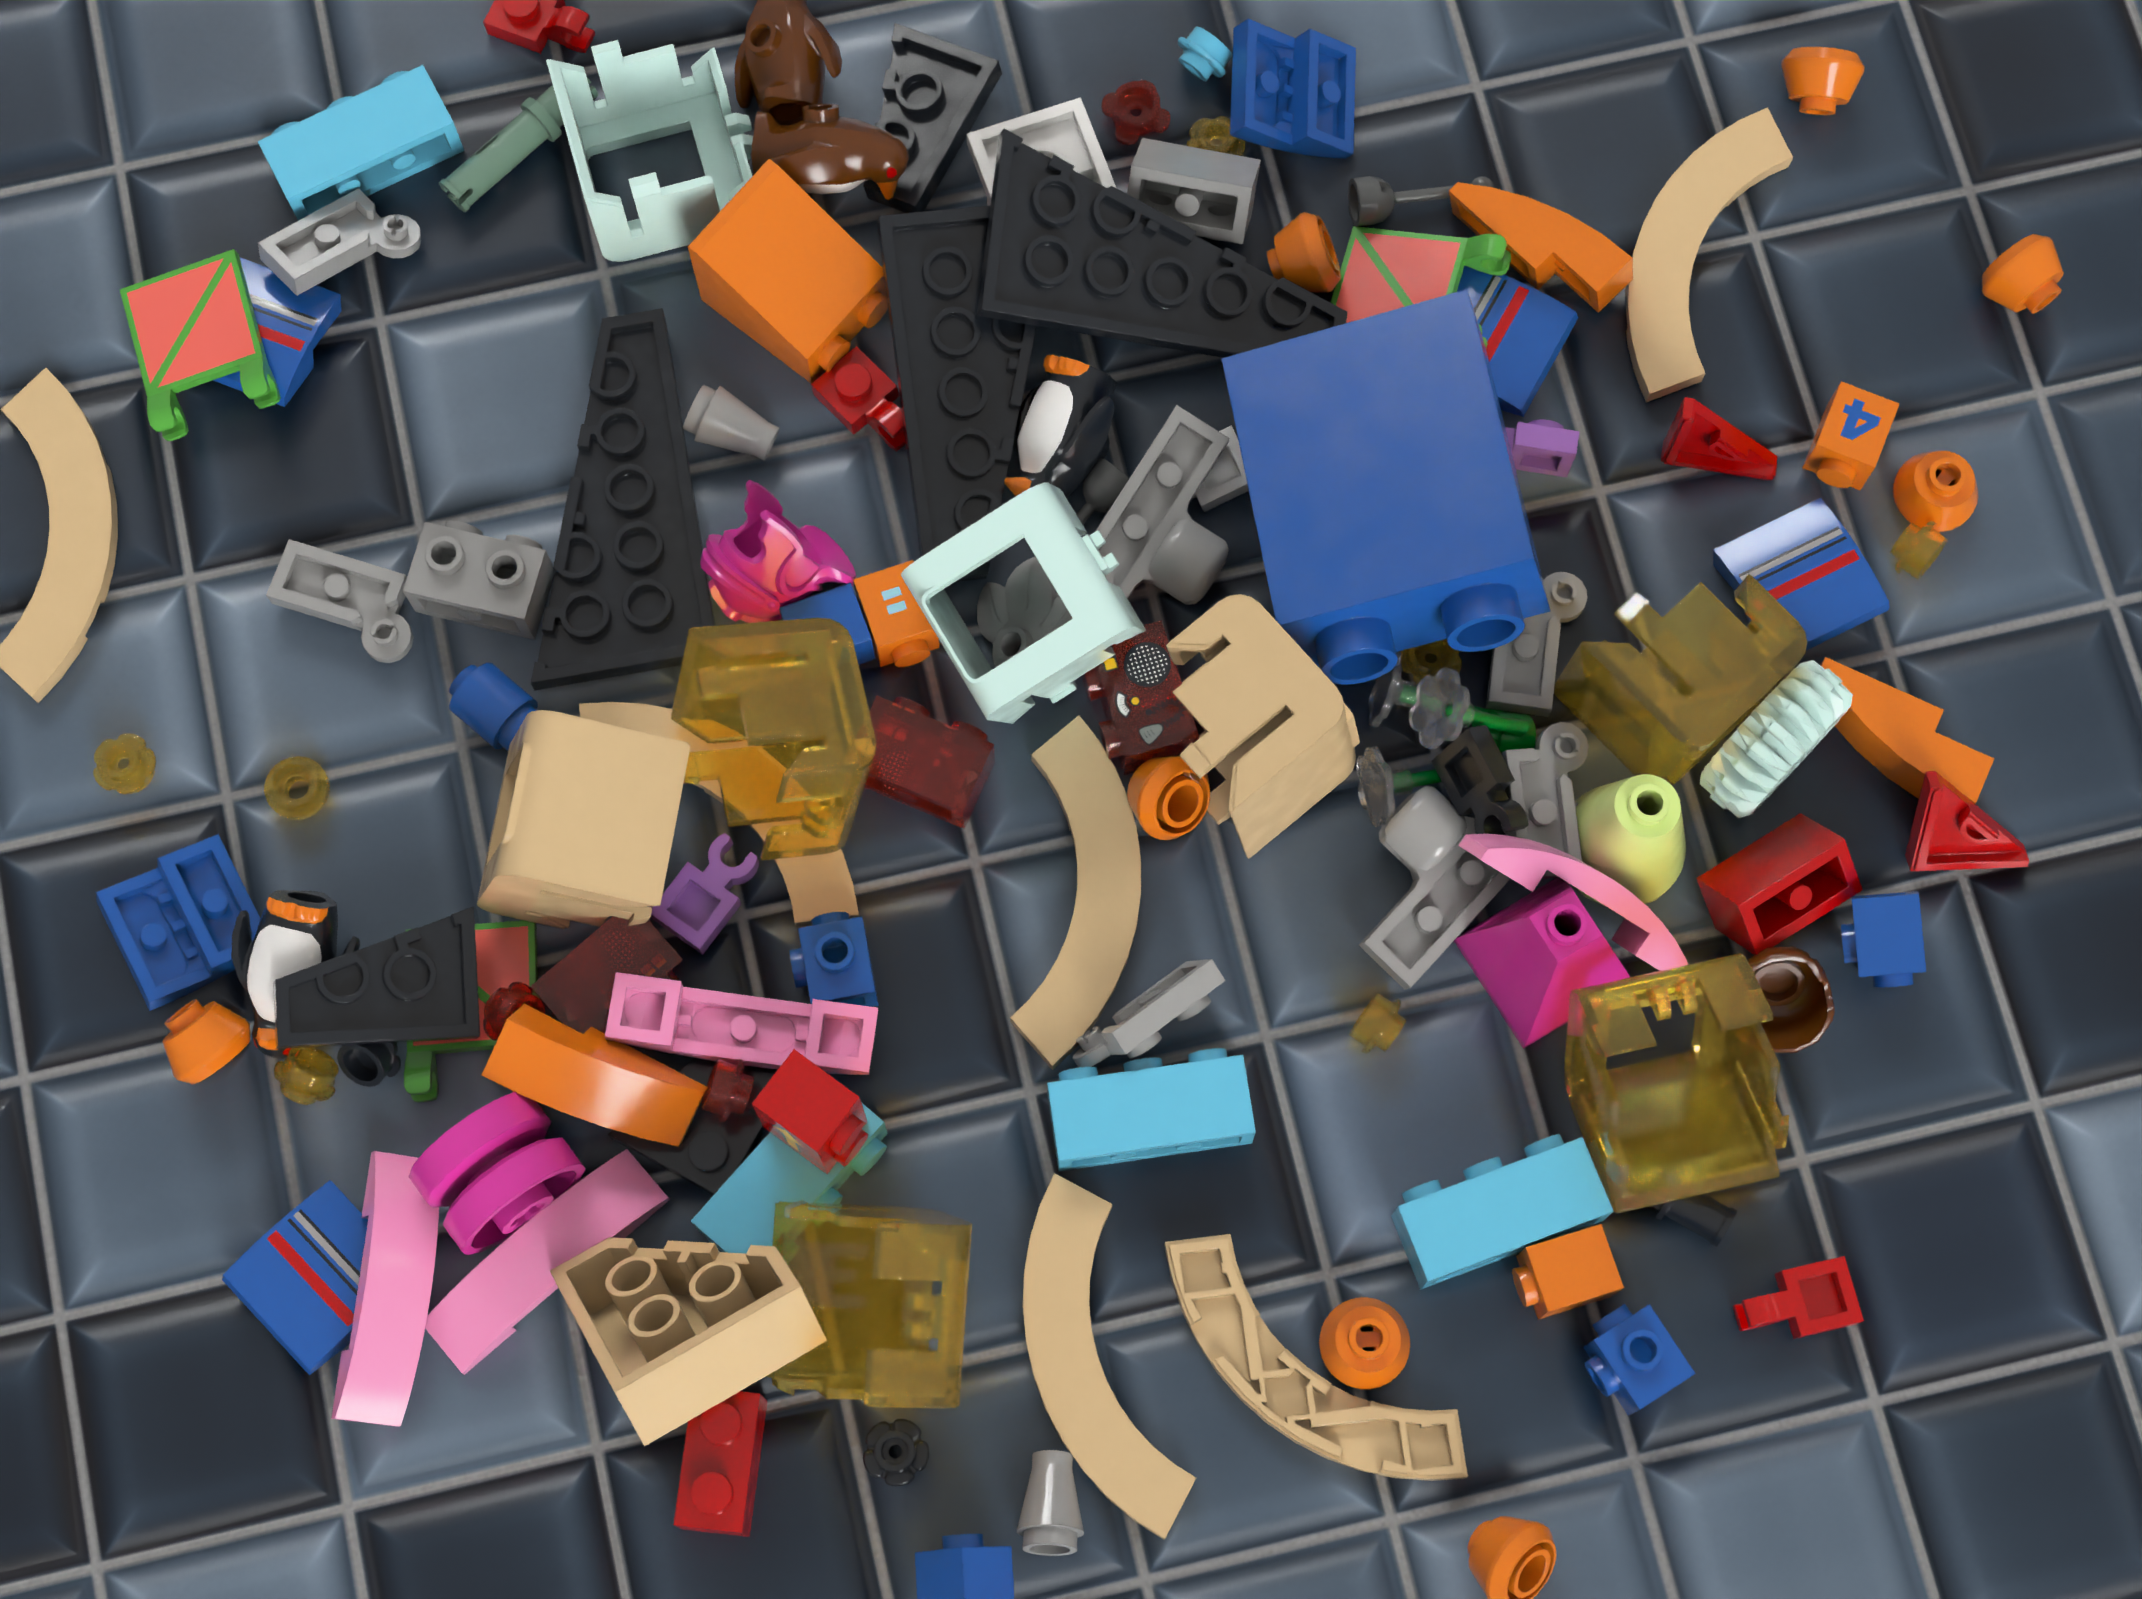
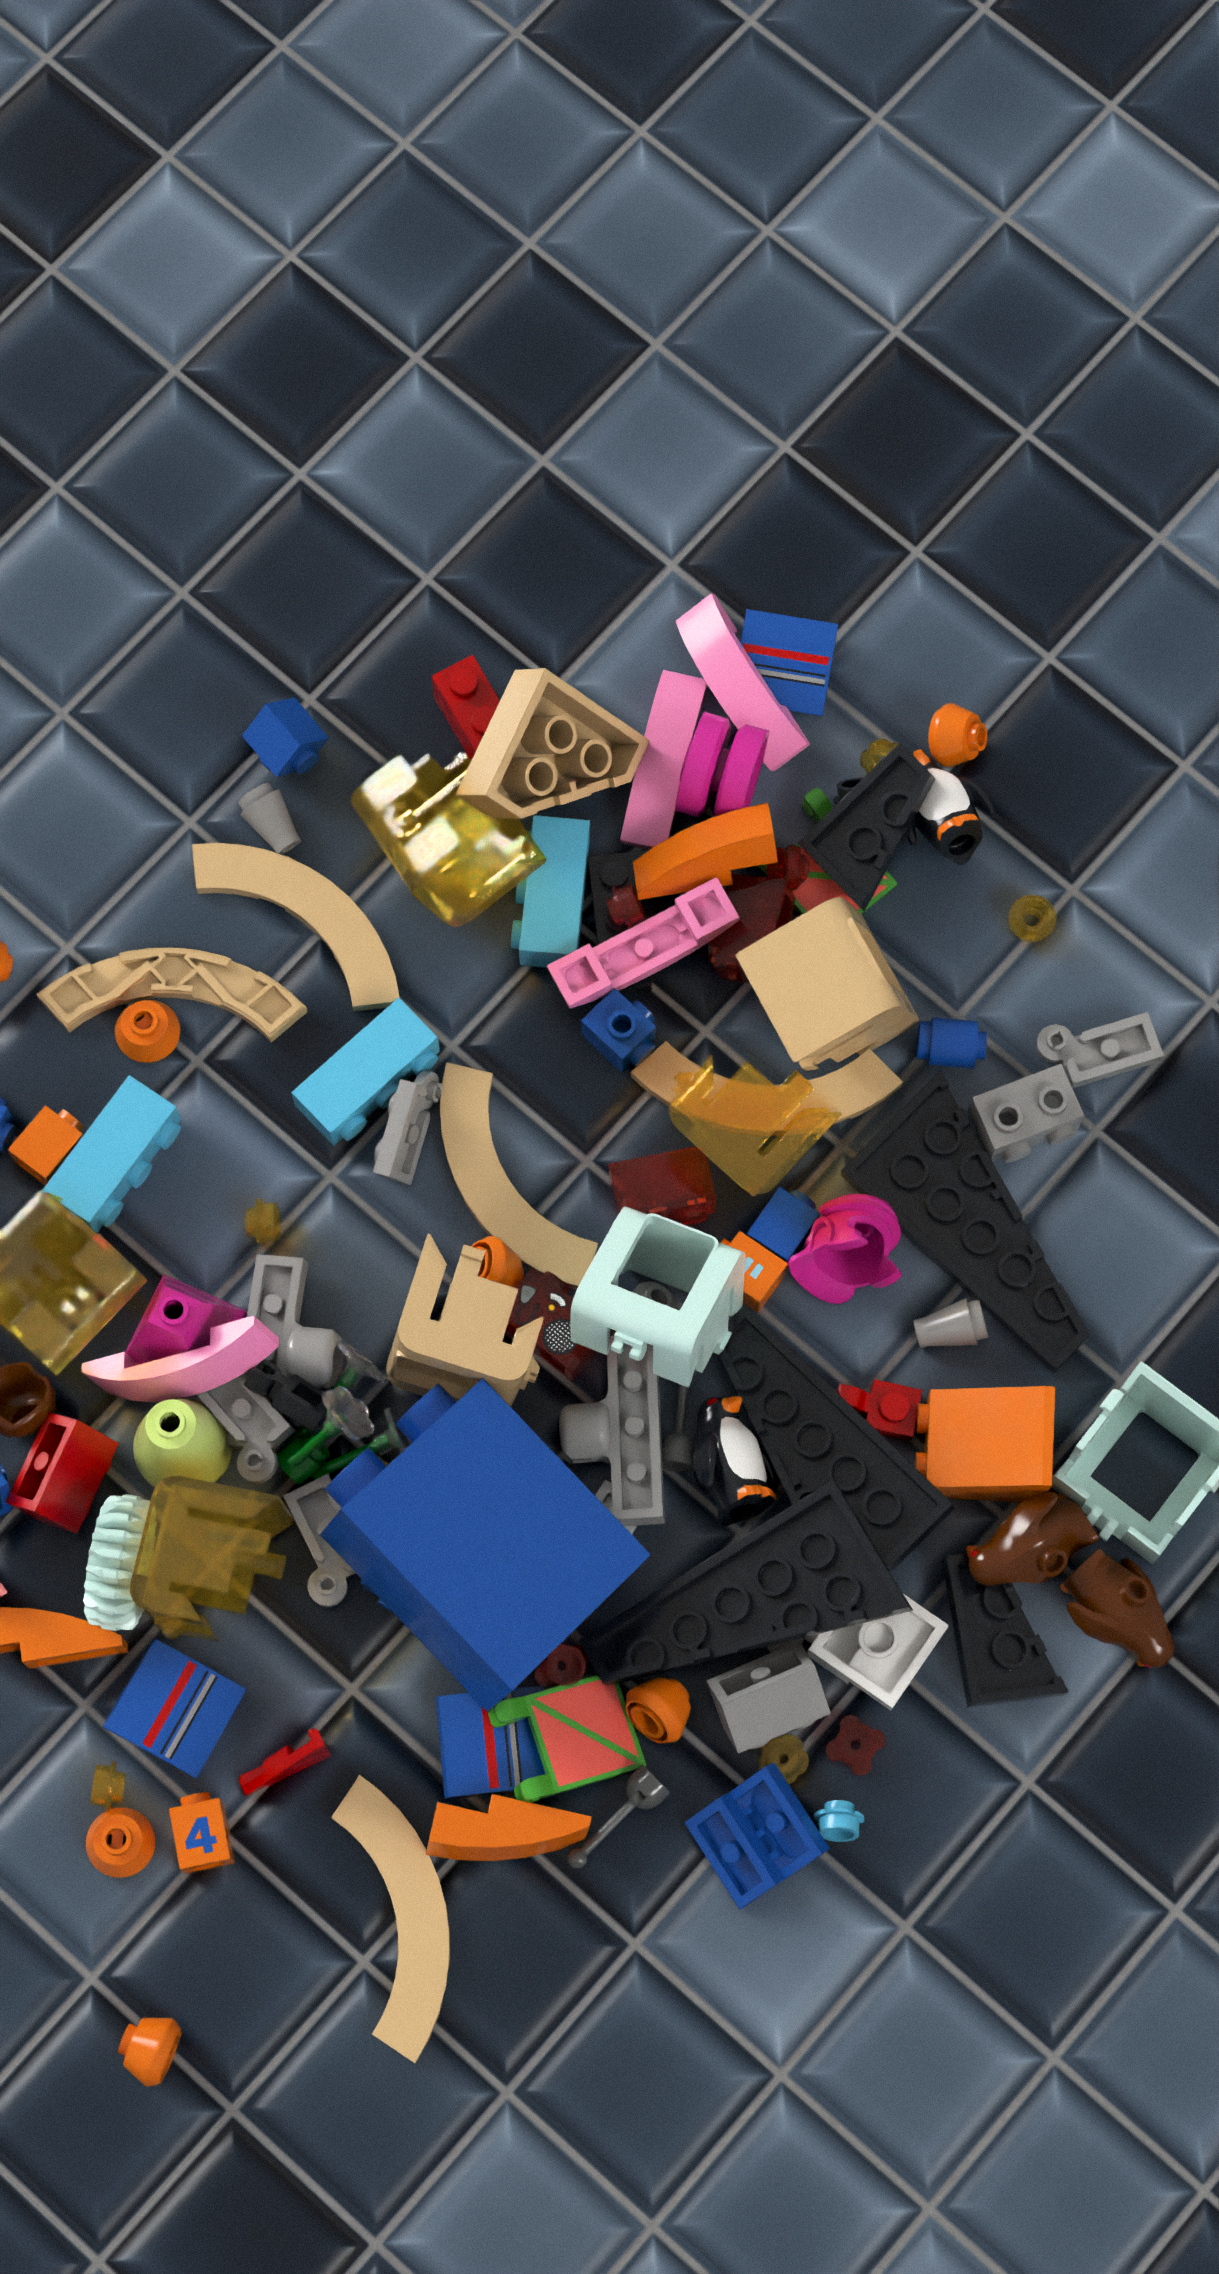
camera: 145 degrees right, 0 degrees up
(137, 773) = (1143, 872): clear yellow plate -> none
(178, 920) = (1034, 798): blue slope -> none
(700, 902) = (732, 1014): medium lavender plate -> none
(812, 1113) = (554, 904): red brick -> none
(1543, 447) = (410, 1679): medium lavender plate -> none
(1821, 78) = (389, 2110): orange cone -> none

